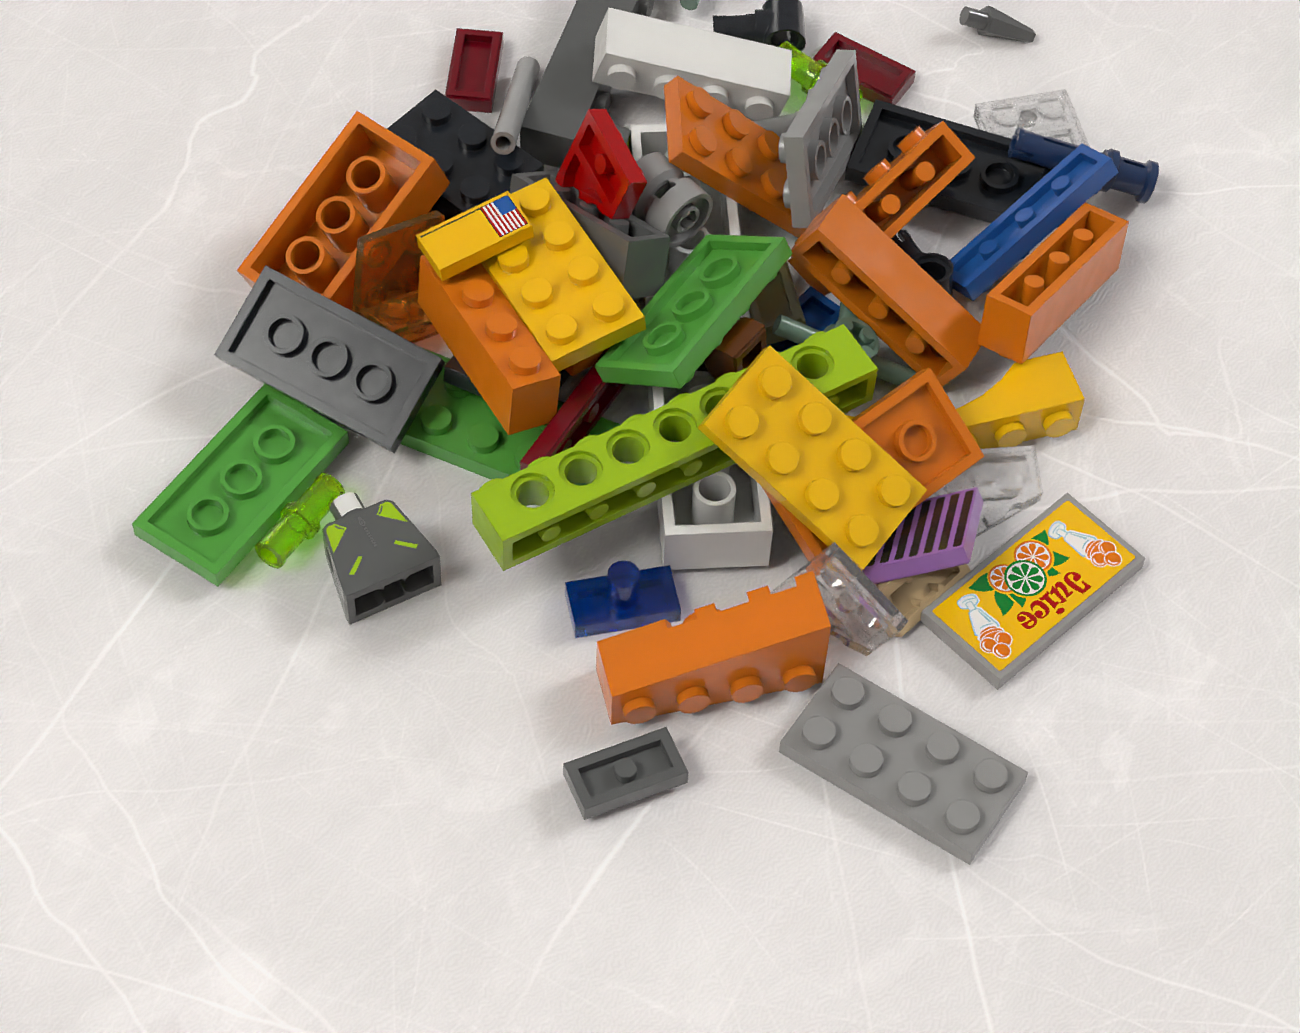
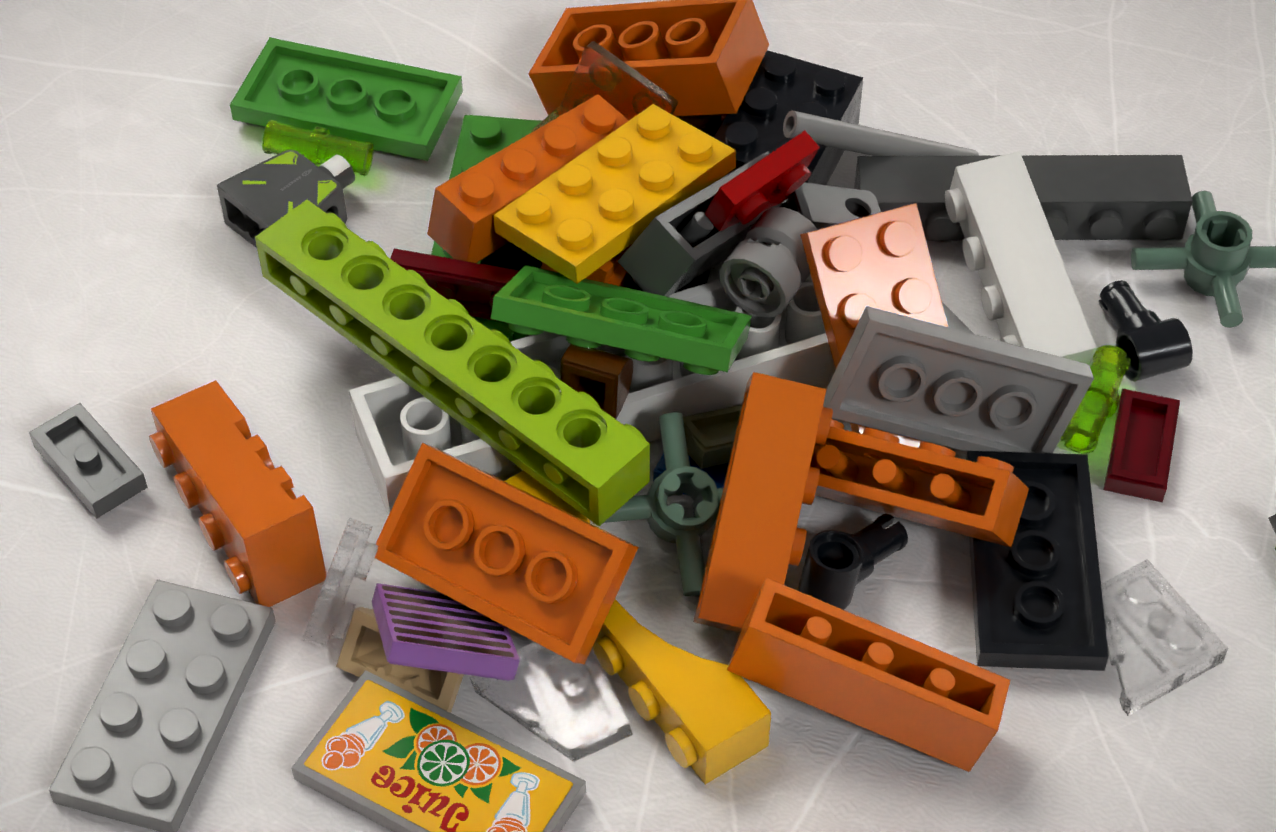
camera: 75 degrees right, 5 degrees down
(330, 359) = (482, 92): plate -> none
(475, 69) = (953, 121): dark red tile -> none
(475, 235) = (619, 109): yellow tile -> none
(622, 599) = (306, 412): clear blue tile -> none
(812, 457) = (459, 469): yellow plate -> none
(1030, 220) = (1010, 650): blue plate -> none
(1132, 176) = (1104, 709): dark blue pin -> none

